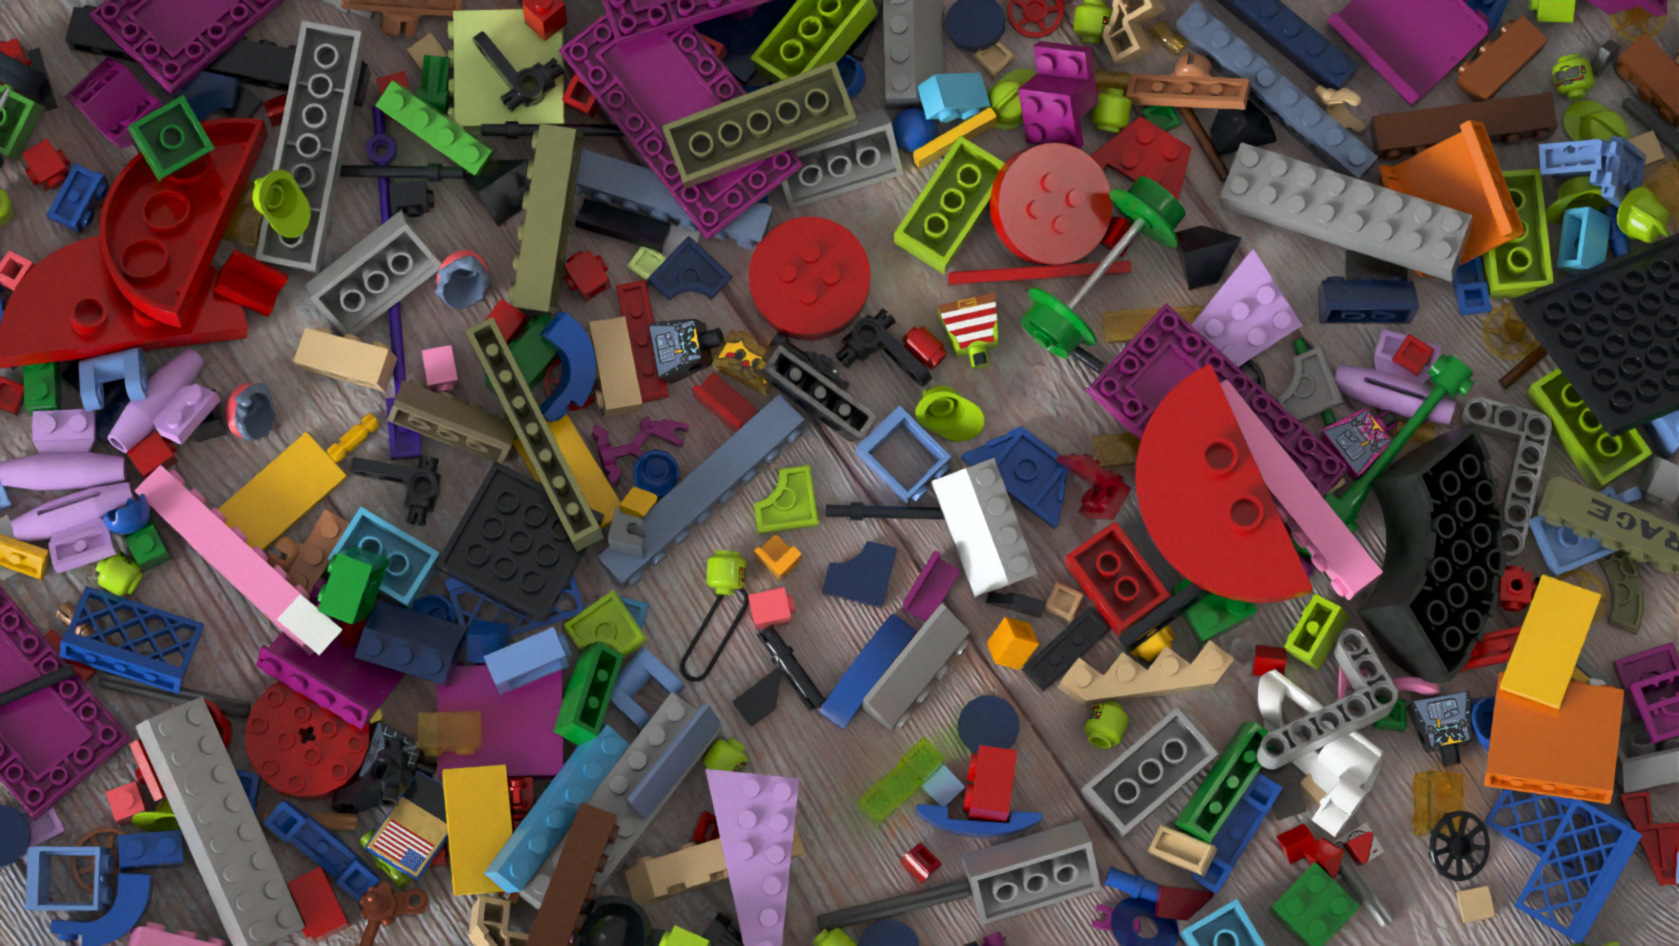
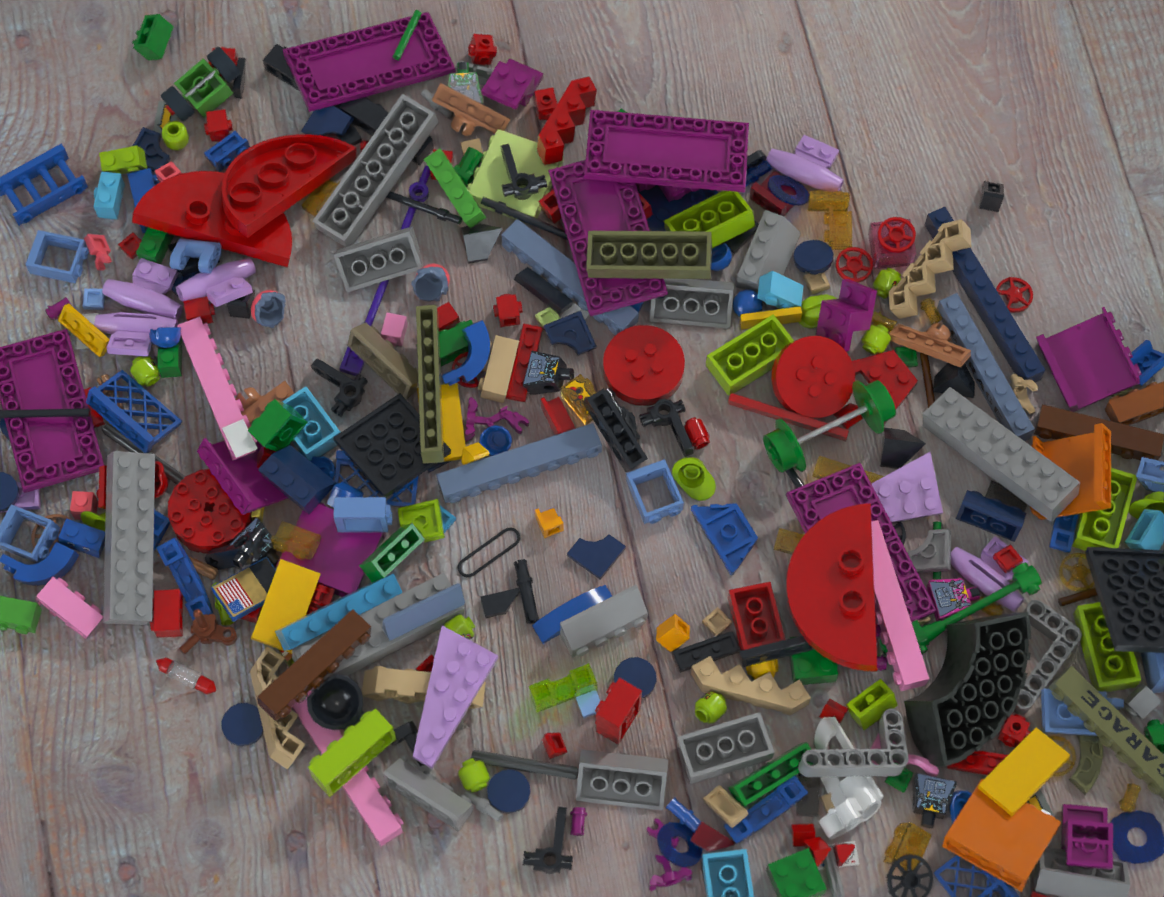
camera: 25 degrees right, 10 degrees down
(112, 101) = (275, 106): magenta bracket -> none
(171, 138) = (294, 132): green brick -> none
(250, 282) = (303, 234): red panel -> none
(282, 203) = (342, 192): lime piece -> none
(283, 493) = (266, 364): yellow tile -> none
(345, 358) = (339, 300): tan brick -> none
(353, 438) = (323, 349): yellow axle -> none
(411, 198) = (423, 225): black brick -> none
(547, 218) = (497, 263): olive brick -> none
(626, 538) = (455, 464): dark grey hinge -> none
(633, 678) = (424, 557): medium blue connector -> none
(726, 572) = (512, 516): lime head -> none
(771, 608) = (530, 549): coral brick -> none
(790, 504) = (570, 494): lime tile -> none
(858, 511) = (611, 514): black bar -> none
(930, 587) = (639, 574): magenta panel -> none
(938, 817) = (626, 745): blue slope -> none
(971, 327) = (731, 432): torso -> none
(984, 527) = (685, 553): slope -> none
(1017, 603) = (687, 610): black tile -> none
(1107, 489) = (775, 556): dark red bracket -> none

